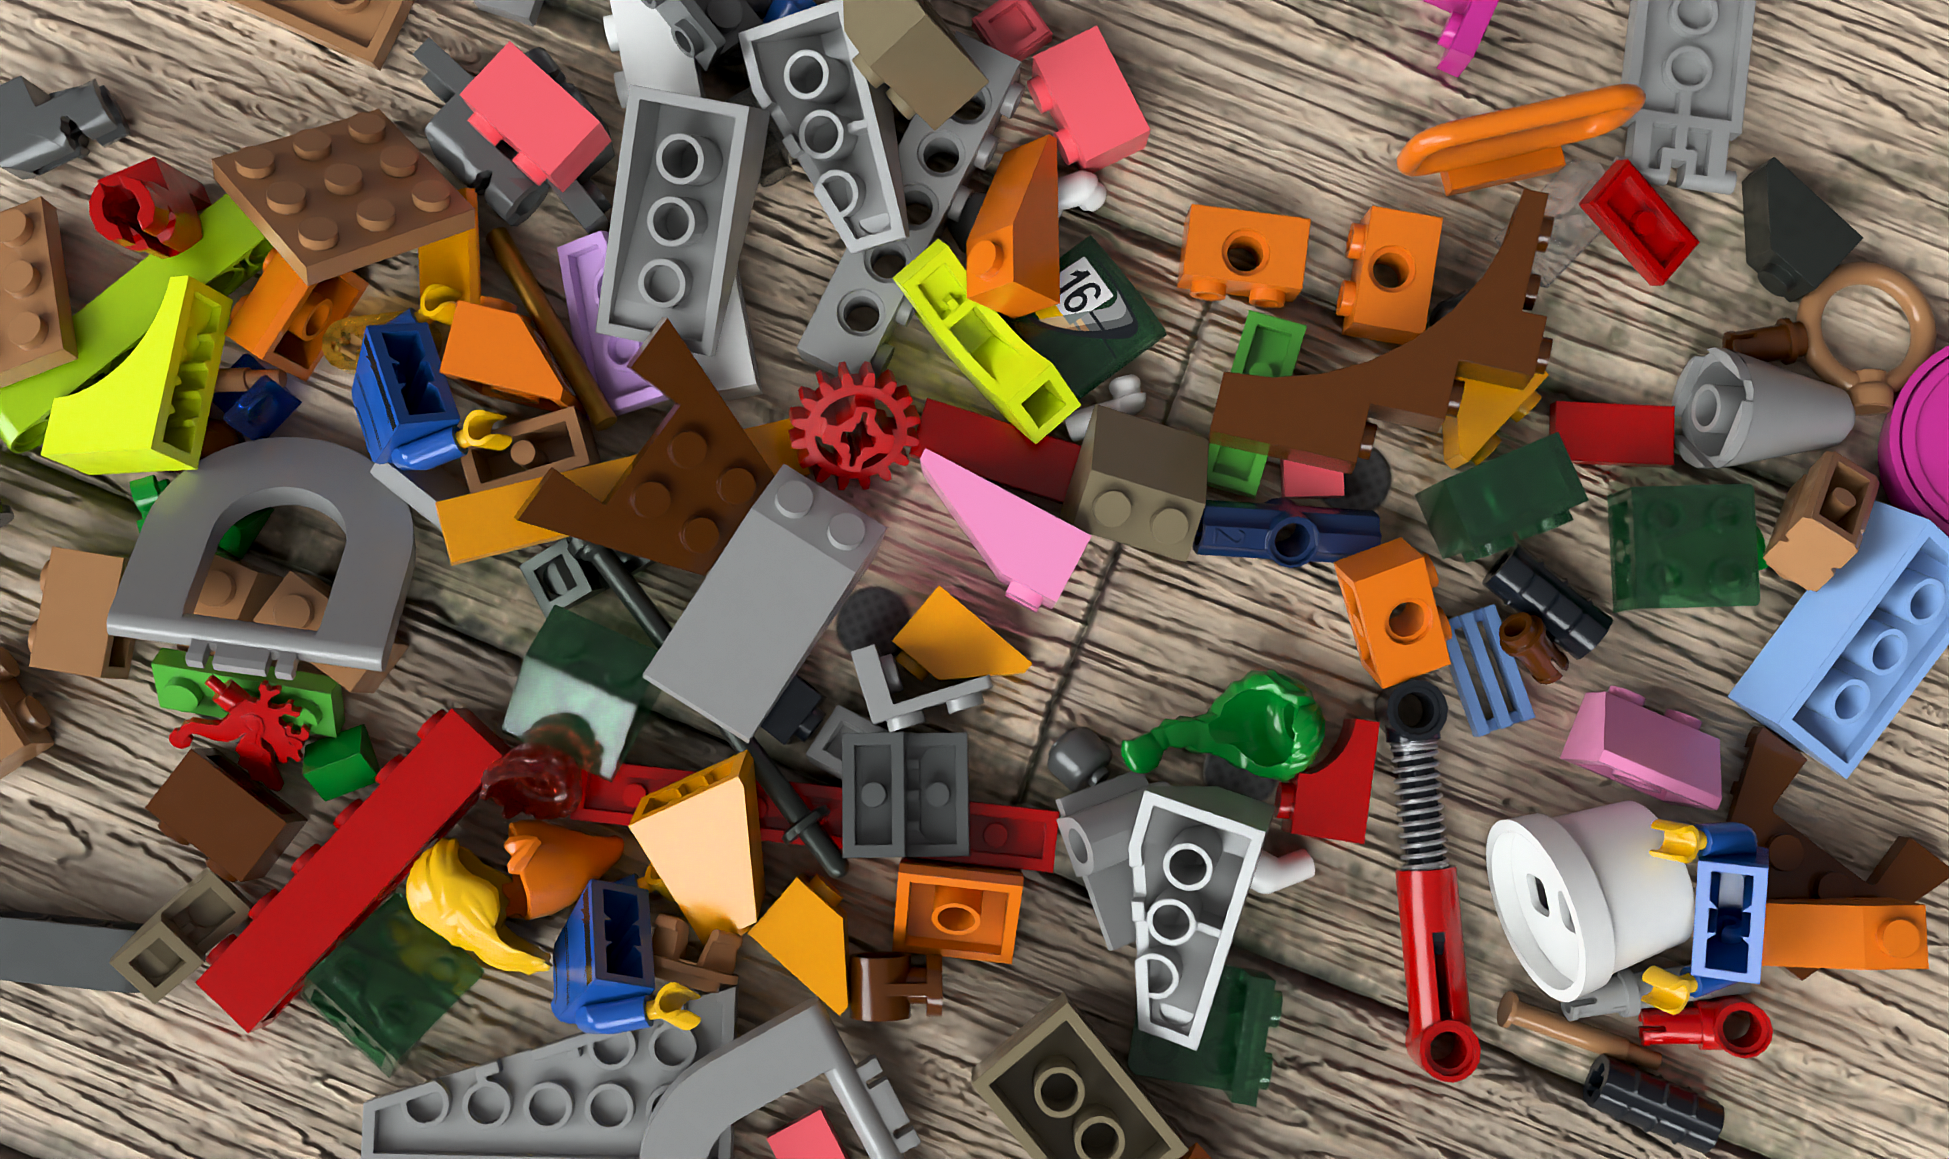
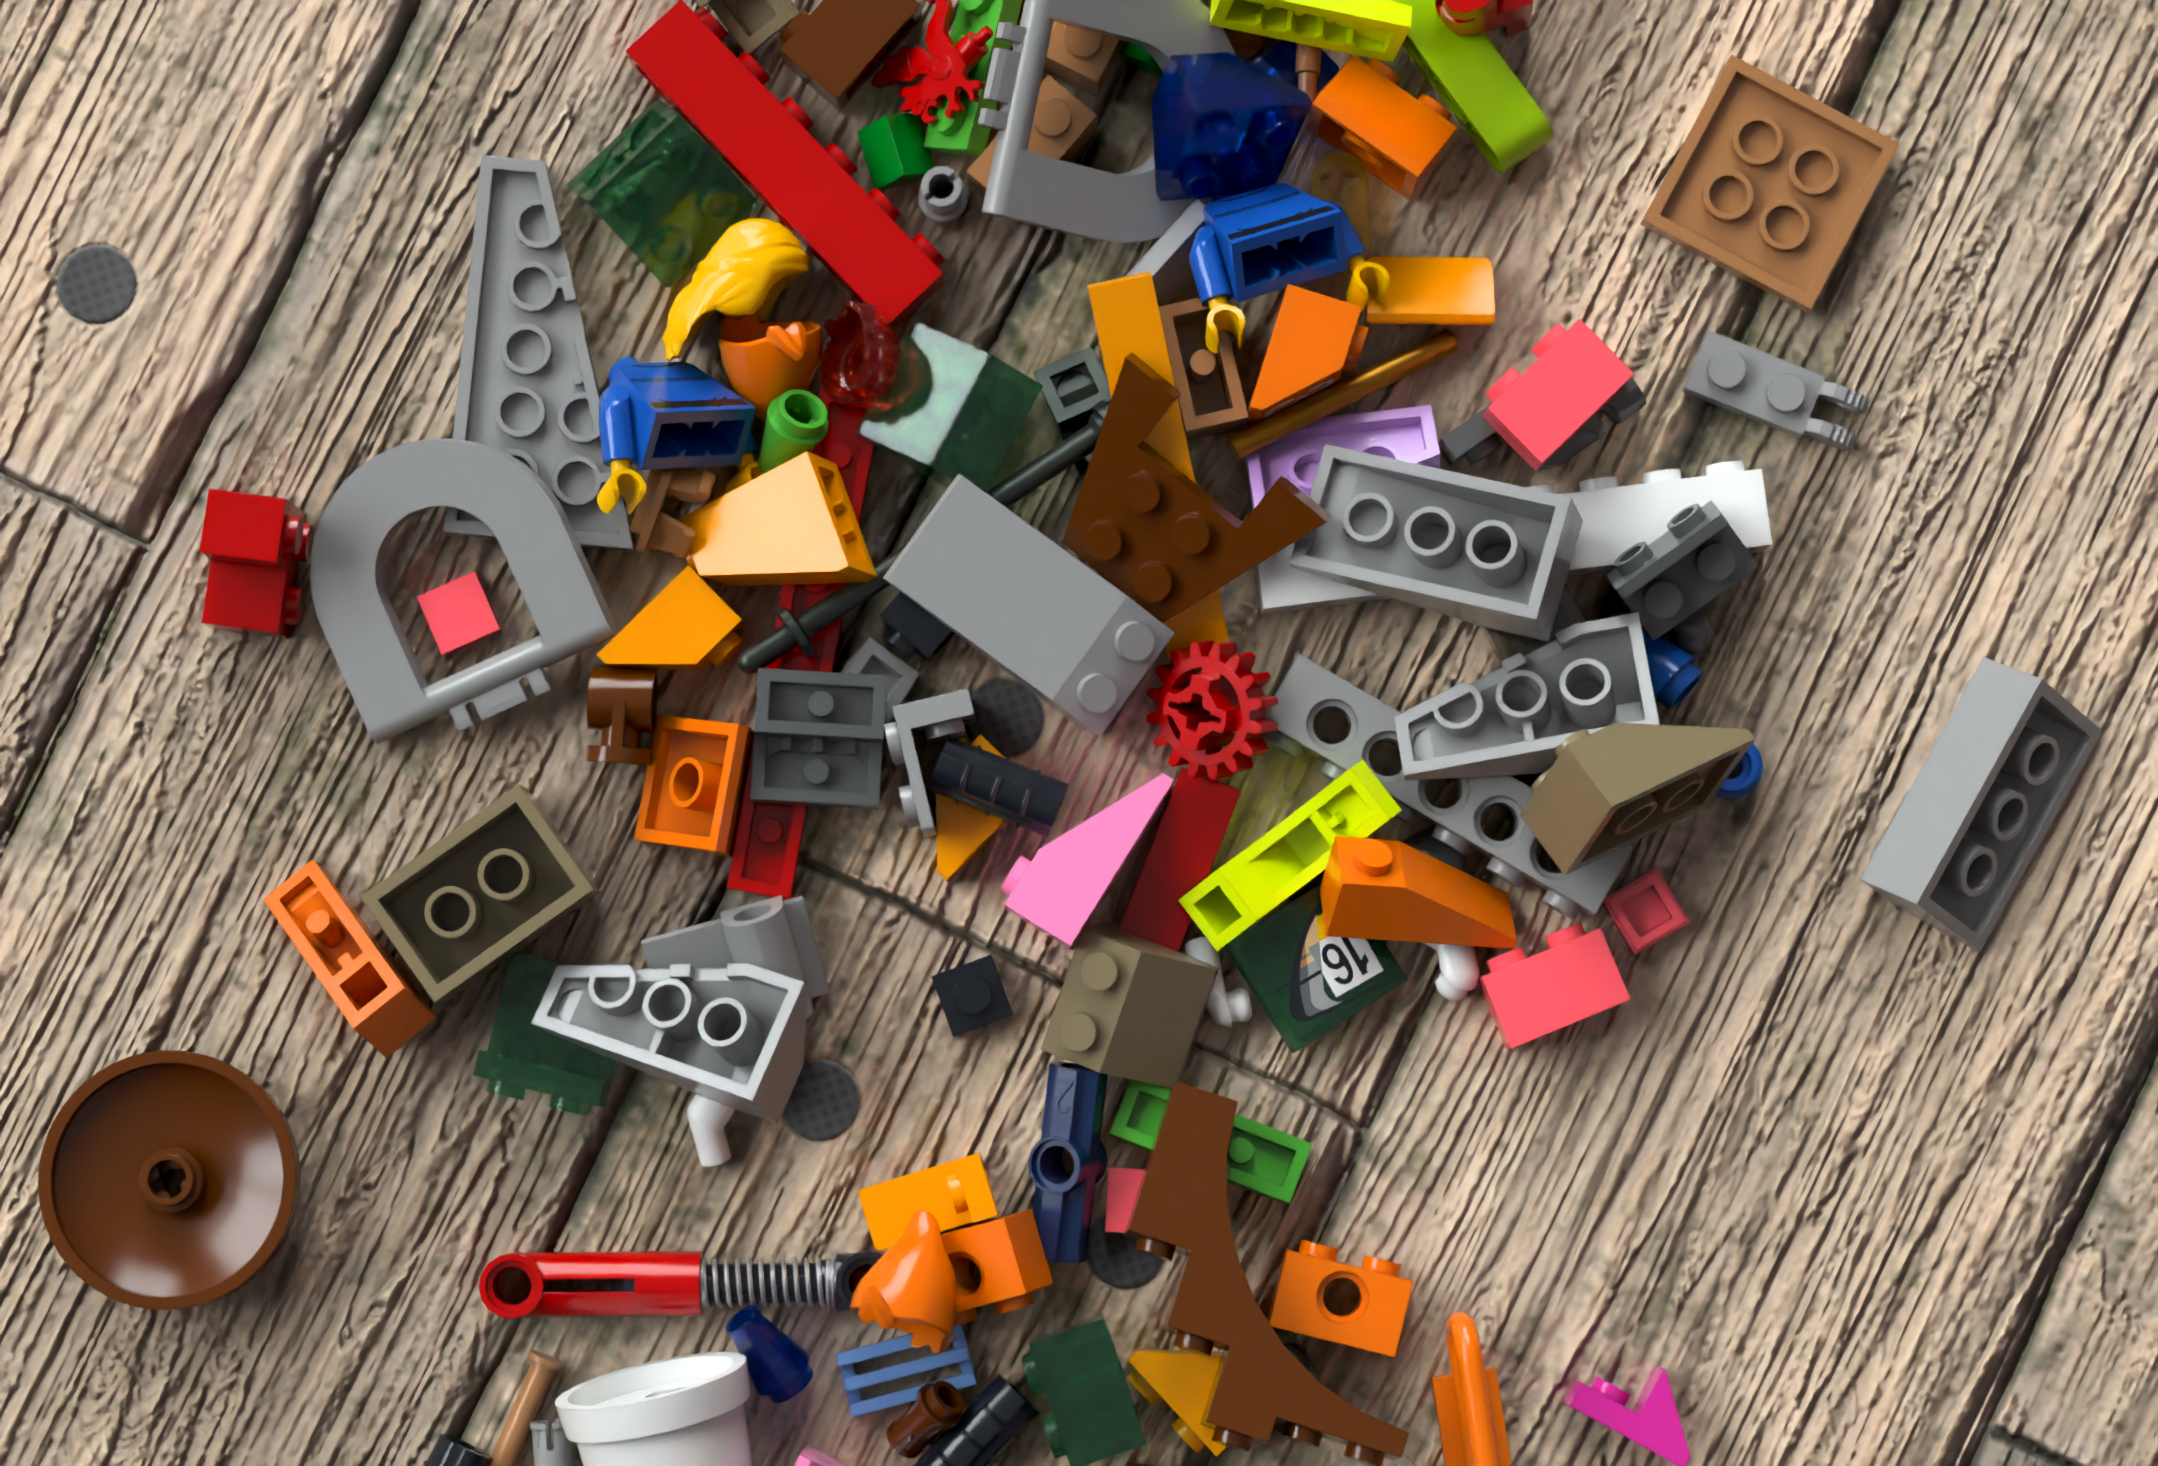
camera: 95 degrees right, 0 degrees up
(293, 450) = (1221, 126): none -> clear blue slope
(343, 195) = (1488, 190): medium nougat plate -> none
(391, 712) = (942, 209): none -> light grey pin
(466, 150) = (1541, 308): dark grey plate -> none
(606, 842) = (792, 426): none -> bright green cone
(942, 617) = (998, 786): none -> black axle
(1080, 759) = (843, 928): dark grey piece -> none
(1134, 634) = (972, 995): none -> black plate
(1256, 725) = (865, 1115): green hair -> none
(1273, 239) = (1385, 1179): orange brick -> none
(1330, 658) = (951, 1191): none -> light orange bracket
(1336, 792) = (783, 1189): red arch -> none
(1425, 666) = (912, 1286): none -> orange hat
(1491, 795) = (773, 1359): none -> clear blue cone

